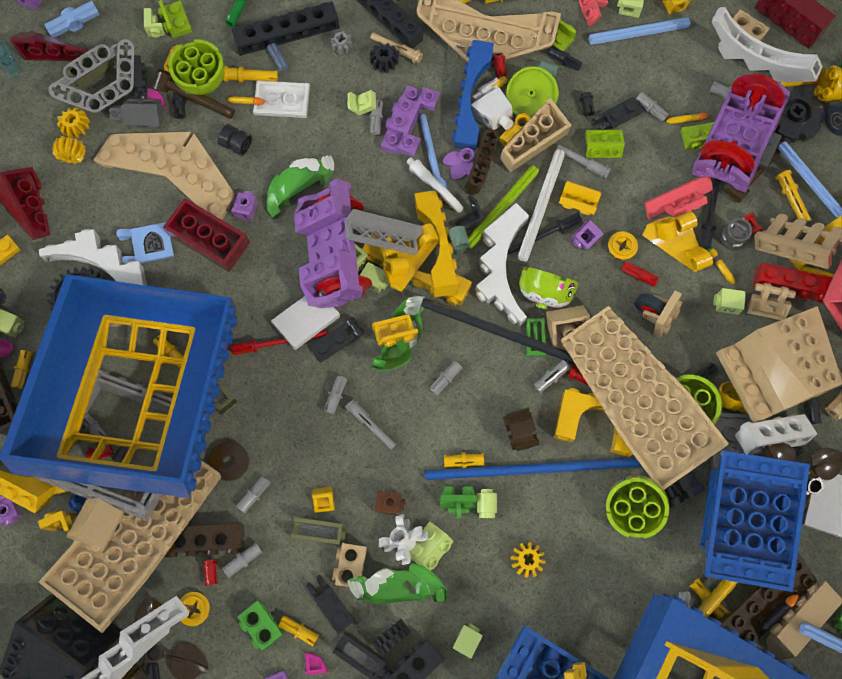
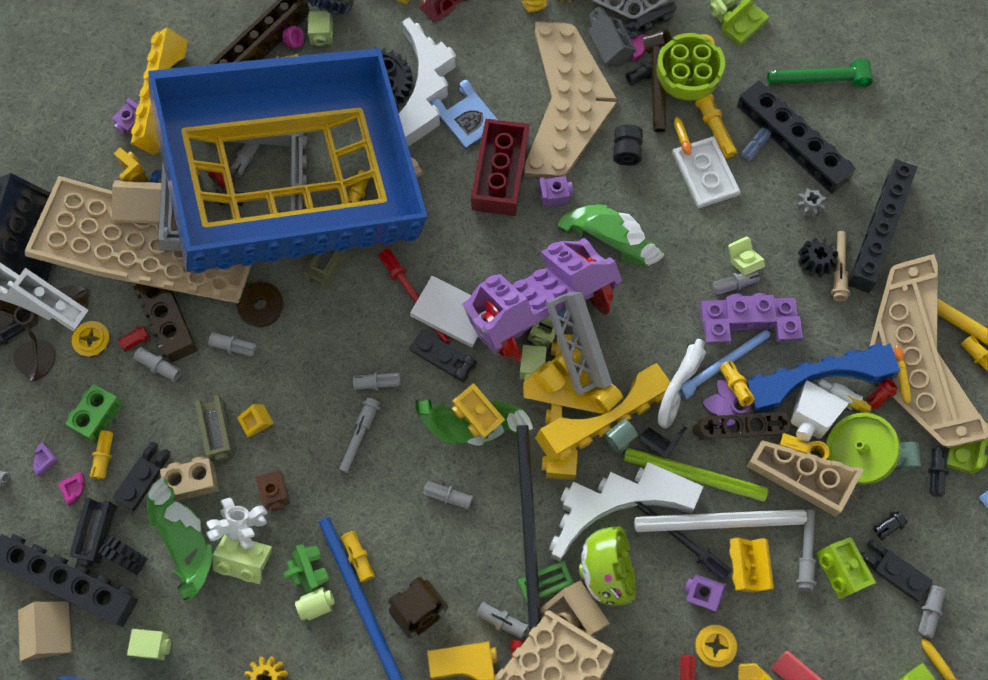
camera: 70 degrees right, 5 degrees down
(452, 149) = (737, 383): none -> yellow pin
(497, 46) = (902, 376): none -> yellow piece

